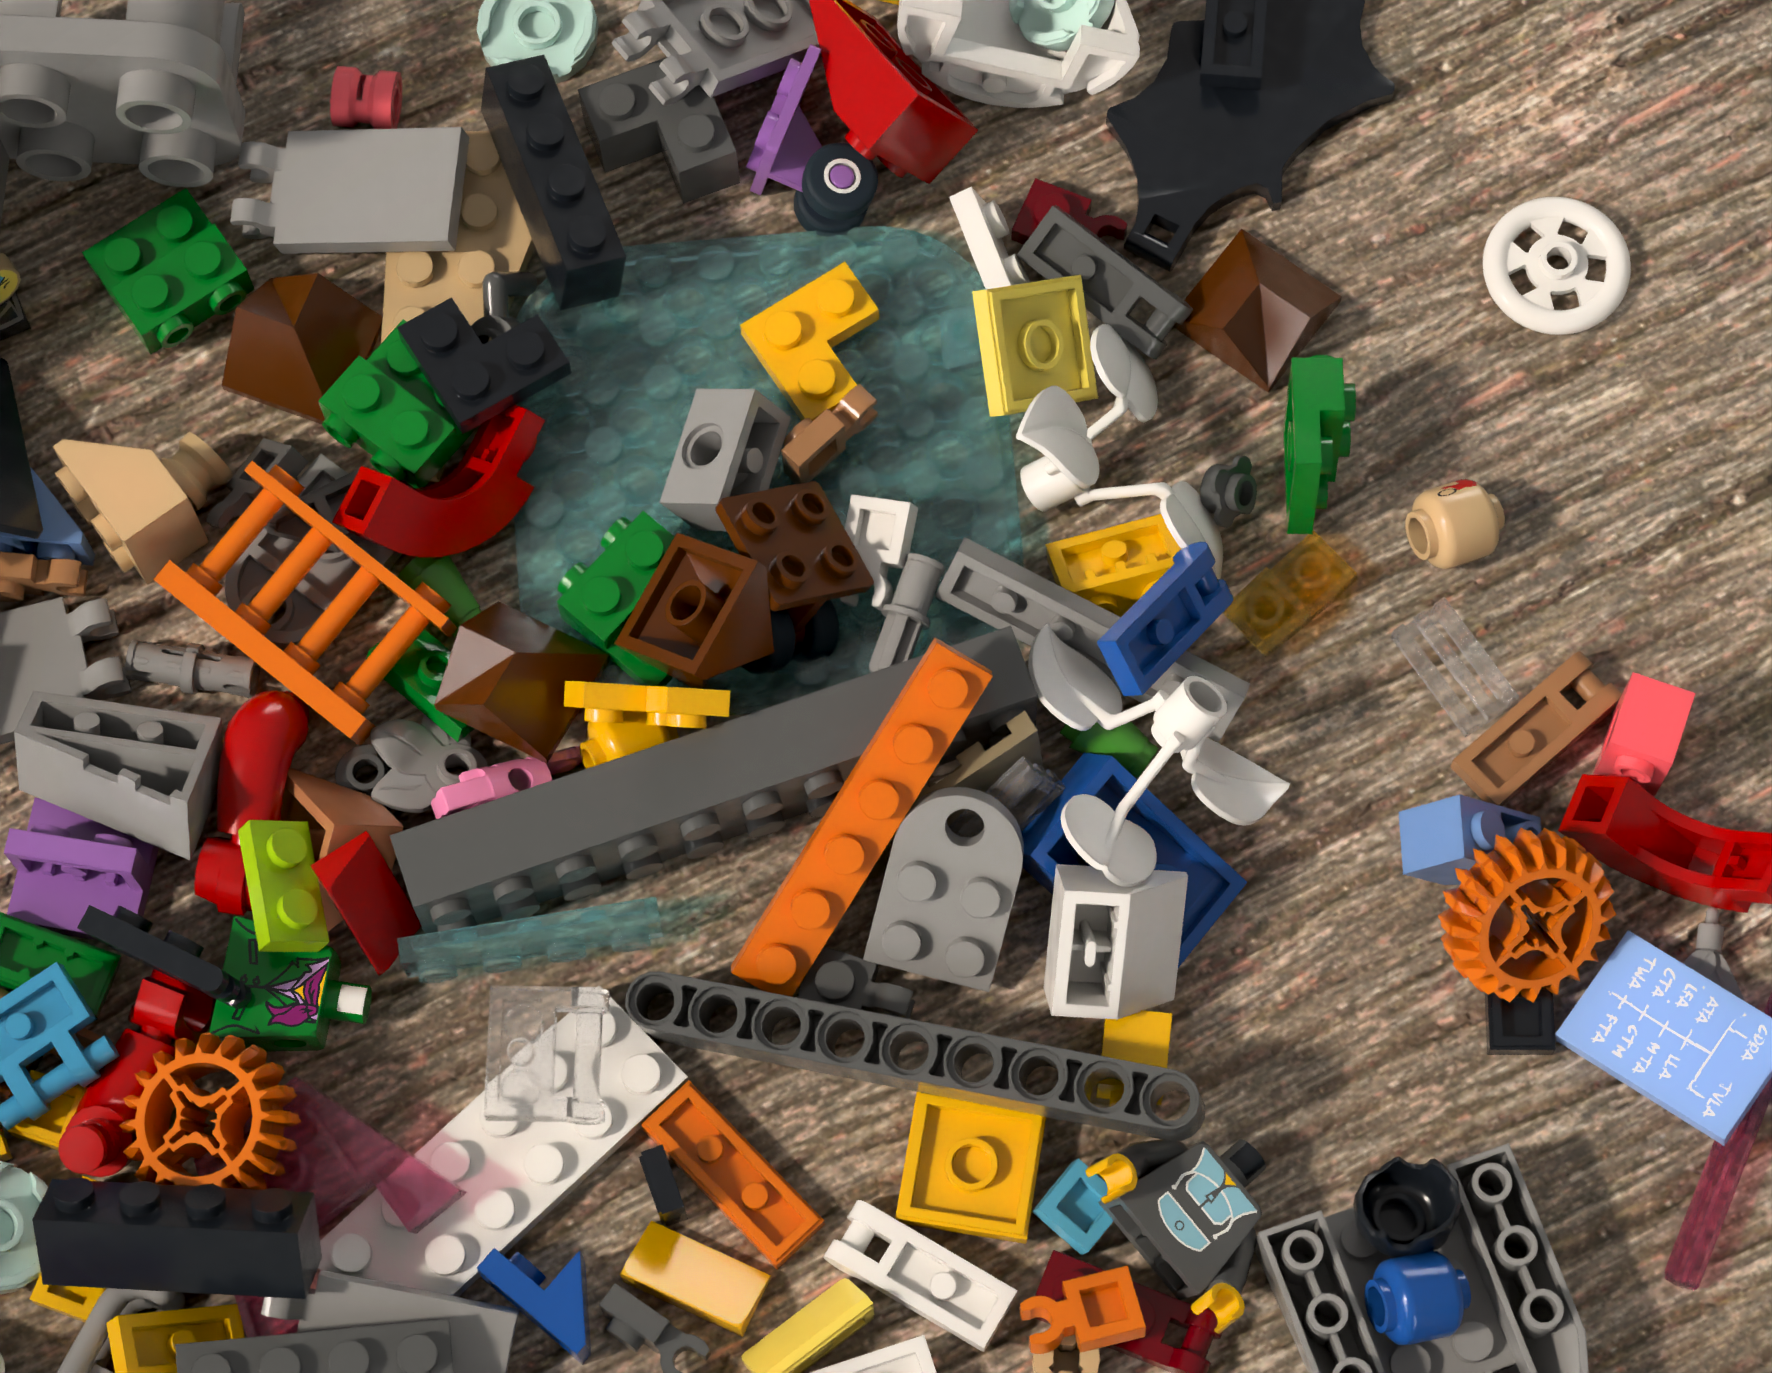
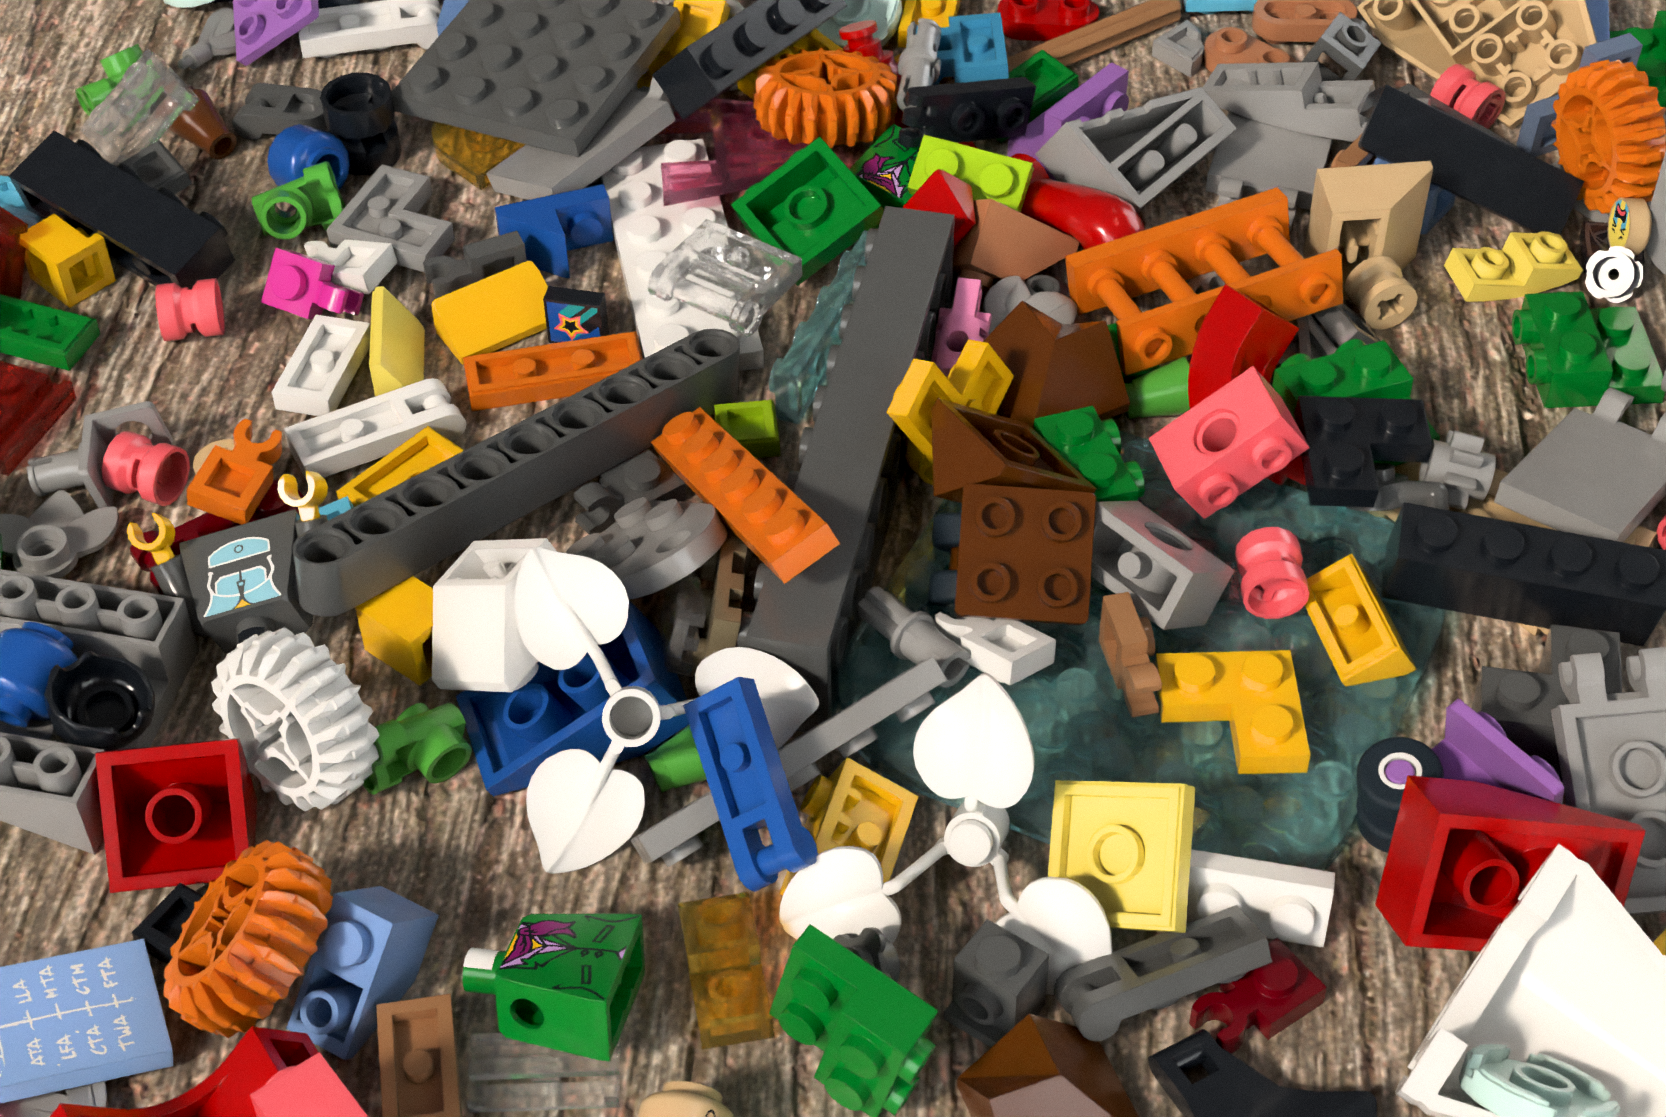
camera: 120 degrees right, 25 degrees down
(44, 286) = (1598, 270): none -> plate
(71, 382) = (1523, 266): none -> light yellow slope
(119, 1042) = (919, 60): none -> light grey pin
(296, 342) = (1481, 393): reddish brown slope -> none
(394, 1042) = (809, 207): none -> green plate
(439, 277) = (1460, 467): none -> light grey gear
(517, 442) = (1228, 443): none -> coral brick
(660, 375) = (1271, 573): none -> coral wheel
(668, 298) = (1355, 625): none -> yellow slope
(703, 942) = (751, 425): none -> lime tile
(1189, 388) = (996, 983): none -> dark grey brick
(1243, 956) = (419, 741): none -> bright green plate
(1322, 1027) = (295, 718): none -> white gear
(1392, 680) = (564, 980): none -> green torso
(1443, 1088) = (174, 812): none -> red slope

